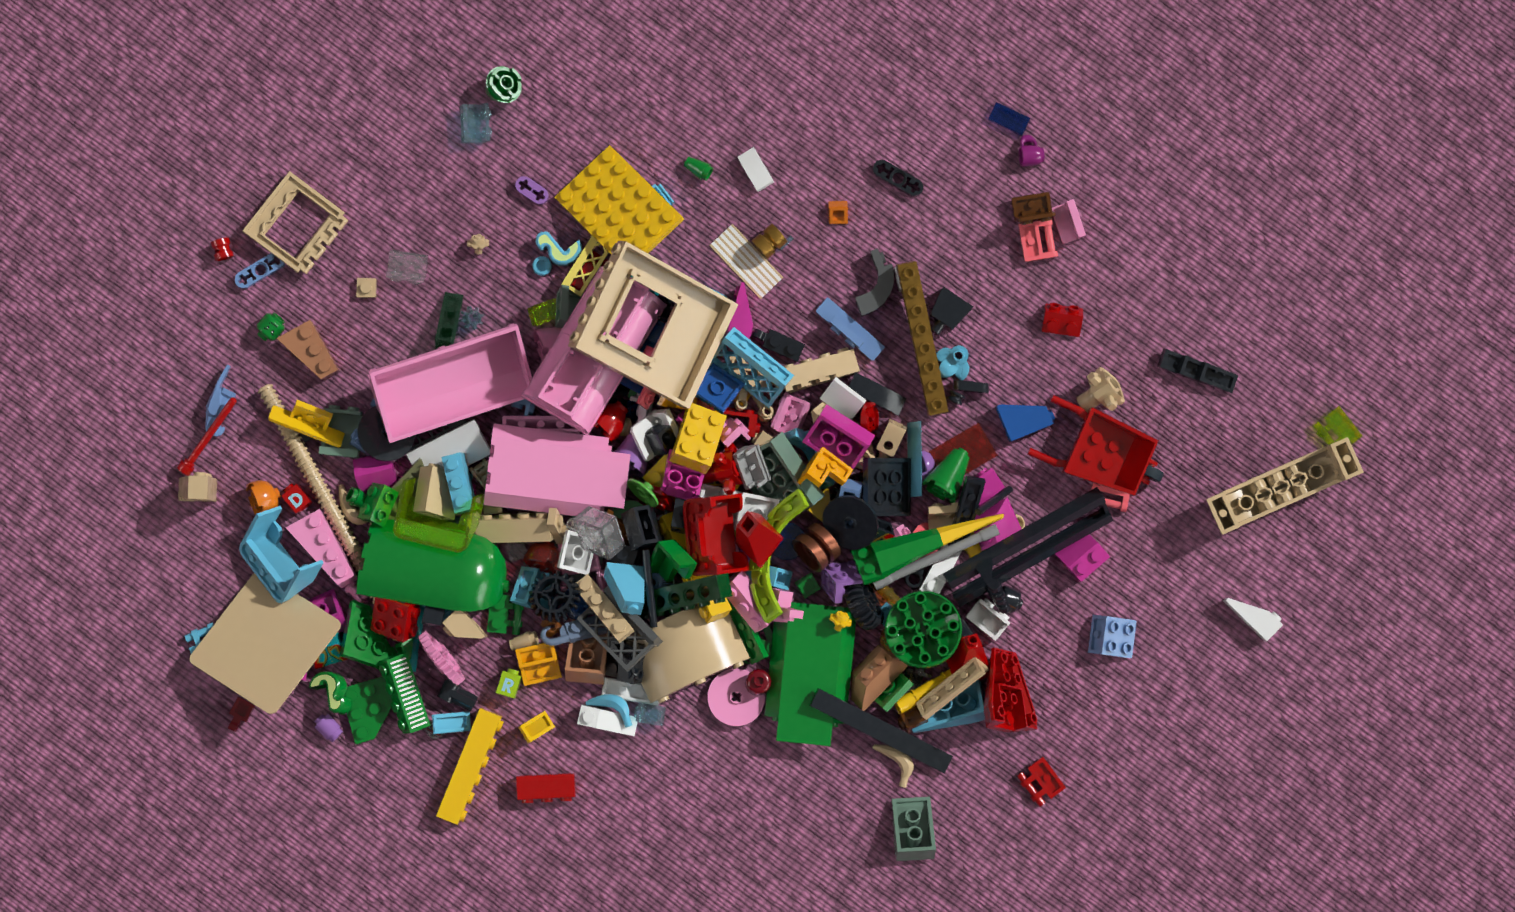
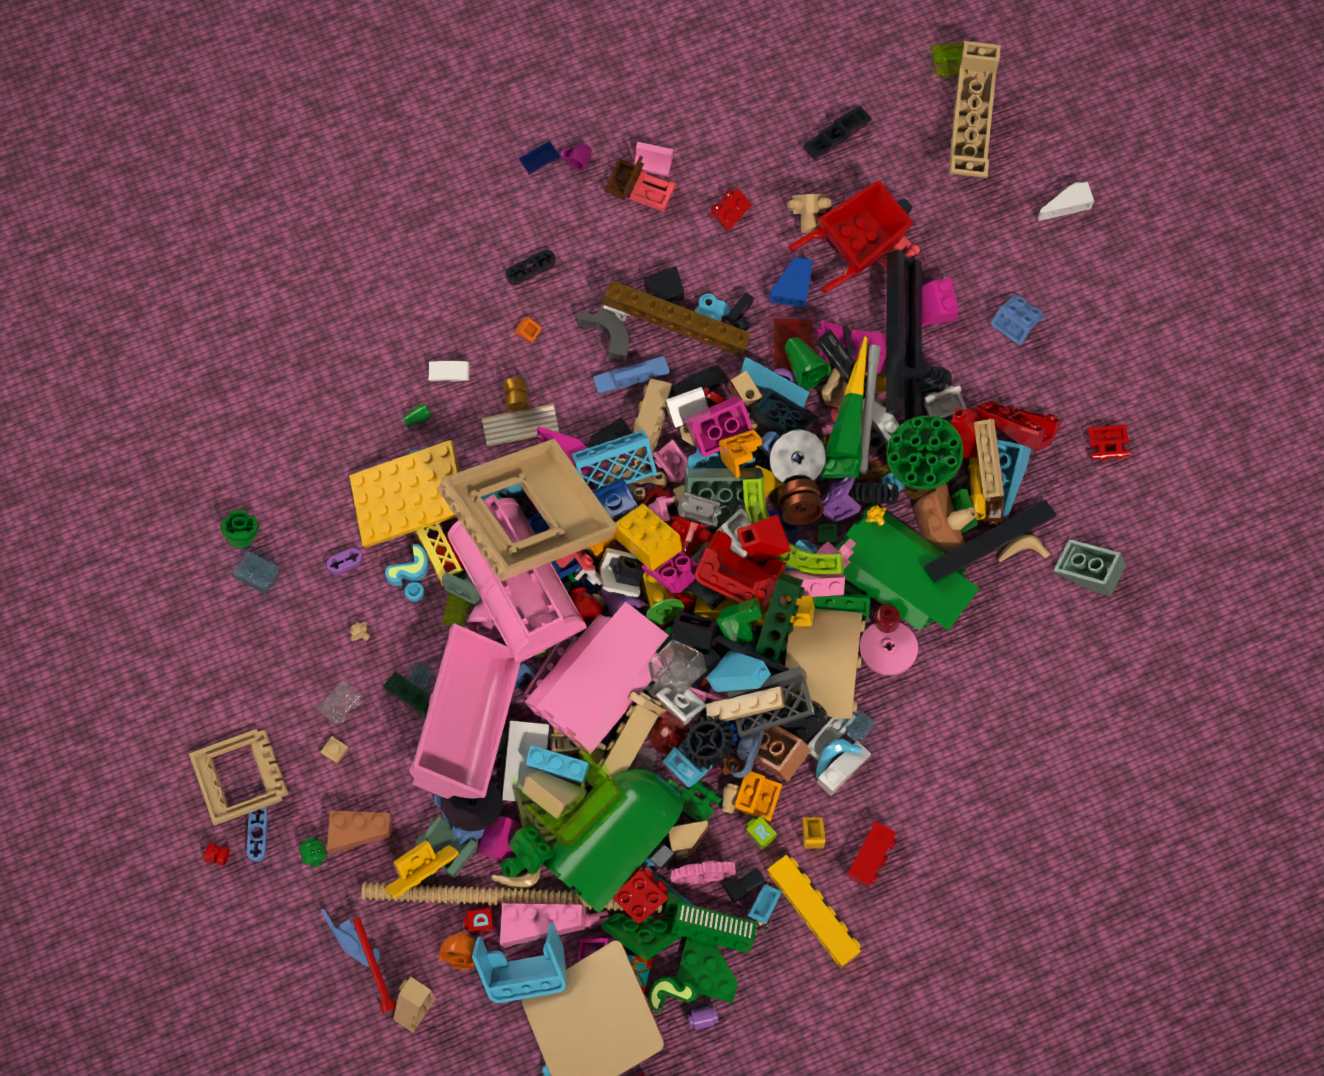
camera: 55 degrees left, 15 degrees down
(880, 694) = (961, 518): none -> tan cone

